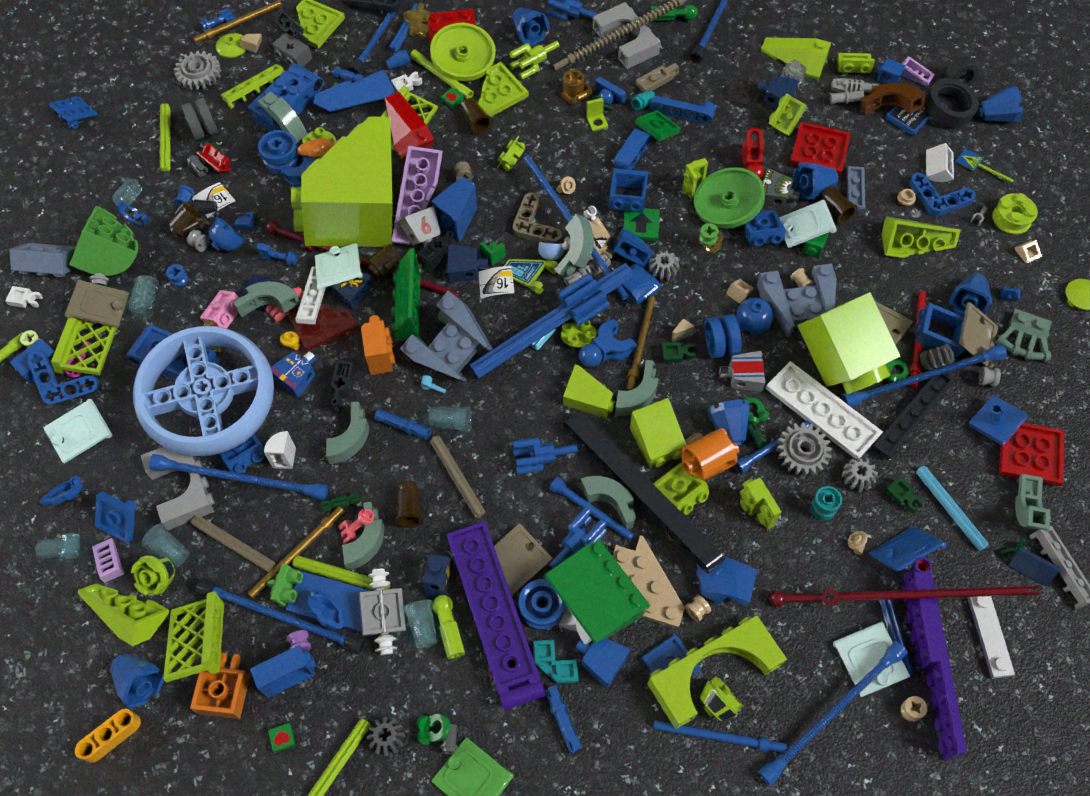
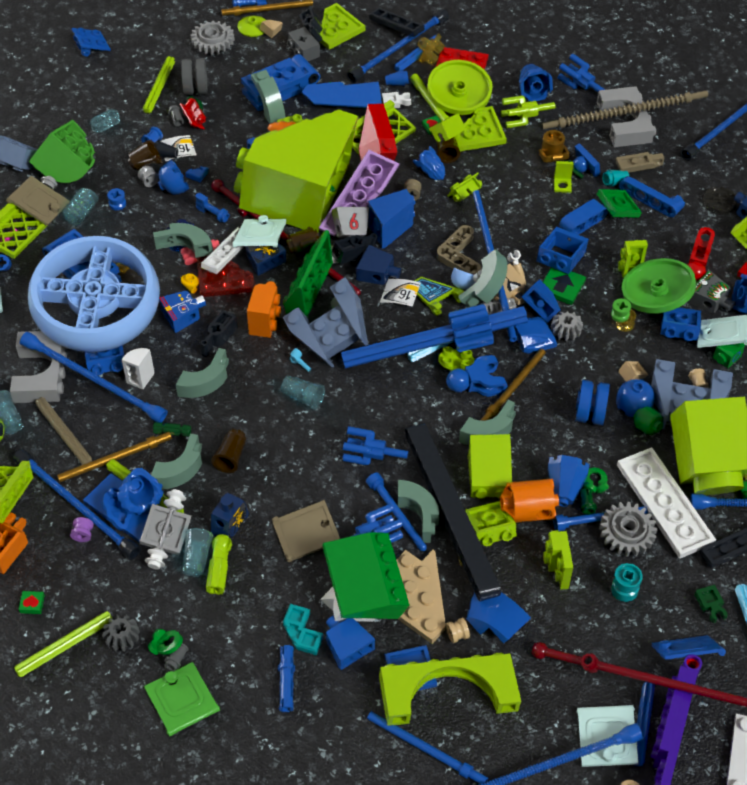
camera: 20 degrees right, 10 degrees down
(121, 208) = (94, 129): blue helmet -> none
(221, 309) = (142, 237): bright pink bracket -> none
(252, 84) = (254, 62): lime hinge -> none
(278, 150) = (251, 122): blue wheel -> none
(283, 584) = (90, 478): bright green hips -> none
(283, 671) = (45, 554): blue window -> none
(341, 584) = (139, 492): none -> blue hair
(346, 75) = (342, 77): blue axle -> none
(365, 517) = (168, 451): coral hinge -> none
(409, 426) = (263, 387): blue pin -> none
(457, 476) = (286, 443): dark tan axle -> none
(469, 140) = (431, 164): none -> blue piece
(472, 97) = (448, 127): none -> lime hinge
(492, 252) = (408, 266): green panel -> none
(495, 616) = (264, 569): dark purple hinge -> none
(540, 617) = (306, 585): blue wheel -> none
(567, 185) = (505, 230): tan plate -> none
(587, 394) = (439, 412): lime slope -> none
(674, 352) = (541, 404): dark green plate -> none
(682, 331) = (557, 388): tan slope -> none
(689, 12) = (697, 113): green piece -> none
(719, 700) = (439, 713): lime cone -> none
(745, 371) = (602, 442): torso -> none
(775, 335) = (648, 420): none -> green head
(852, 471) = (674, 569): light grey gear -> none
(857, 541) = (644, 629): tan plate -> none

